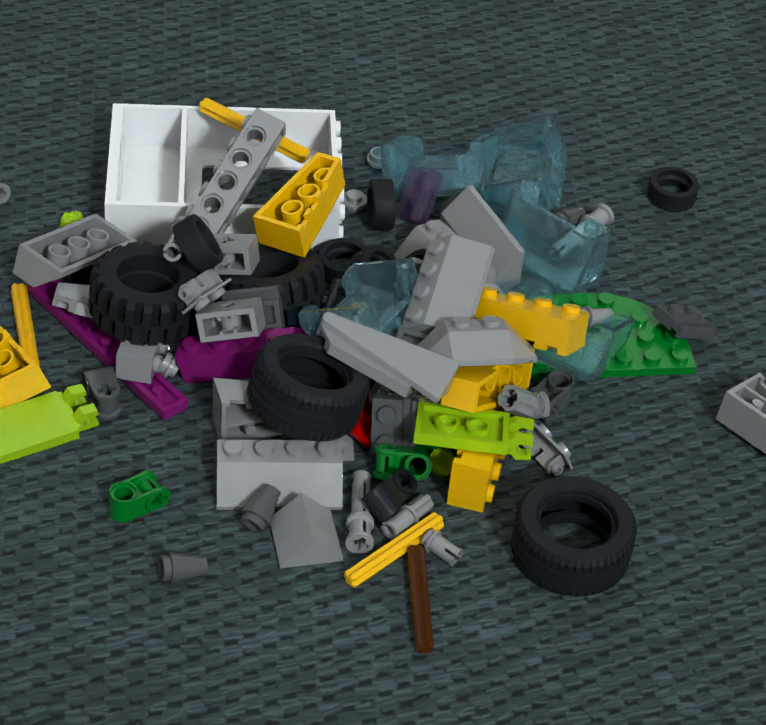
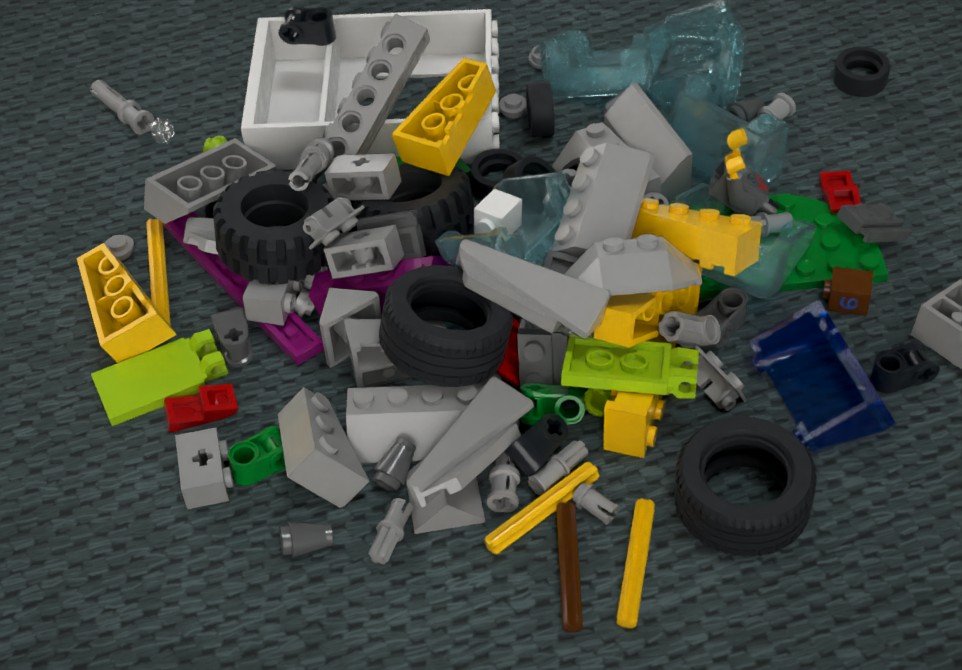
camera: 10 degrees right, 5 degrees up
(19, 202) = (161, 130): none -> clear plate
(84, 504) = (202, 468): none -> light grey brick
(85, 451) = (210, 405): none -> red slope
(167, 114) = (312, 26): none -> black piece
(192, 491) = (319, 450): none -> light grey wedge
(197, 243) = (326, 169): black tyre -> none
(210, 366) = (342, 305): none -> light grey slope
(234, 120) = (375, 25): yellow axle -> none
(259, 564) = (390, 531): none -> light grey axle
(334, 488) = (471, 442): none -> light grey wedge
(351, 289) = (497, 211): none -> white brick
(419, 195) = (582, 96): clear purple panel -> none
(478, 598) = (635, 563): none -> yellow axle
(564, 279) = (738, 184): none -> dark grey torso
(637, 451) = (820, 380): none -> clear blue windscreen
(652, 291) = (838, 190): none -> red slope
(662, 378) = (848, 290): none -> reddish brown brick
(708, 446) = (901, 368): none -> black piece

